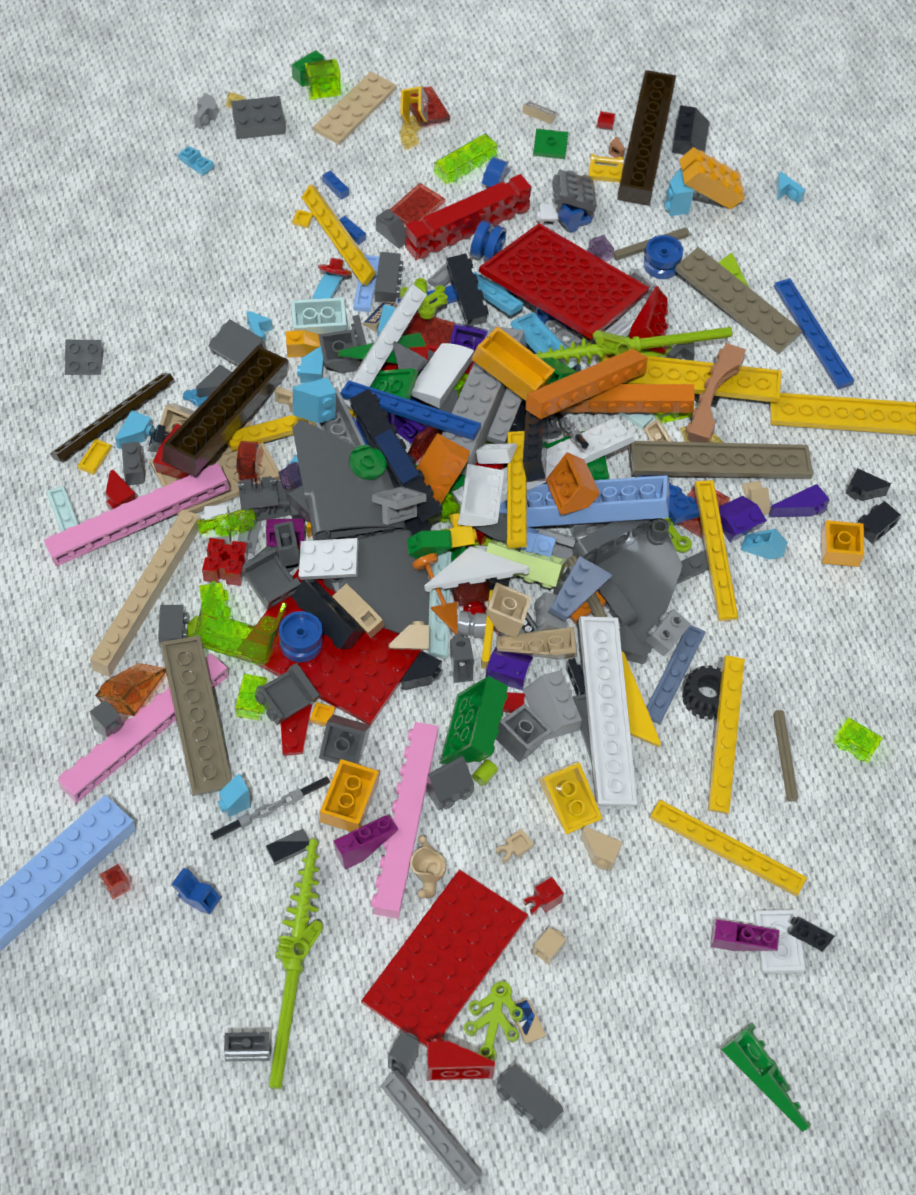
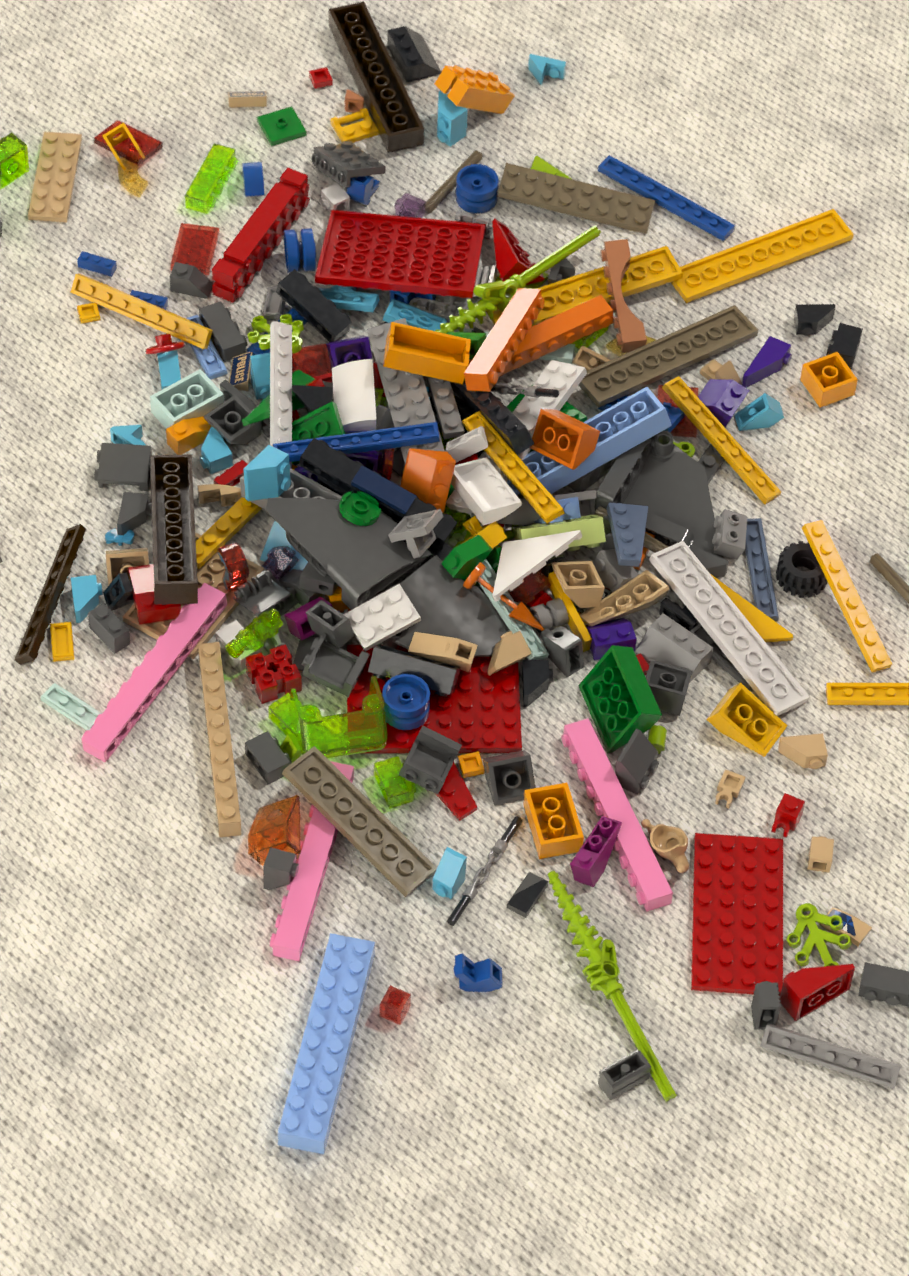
camera: 30 degrees left, 5 degrees down
(117, 491) = (116, 662): red slope -> none

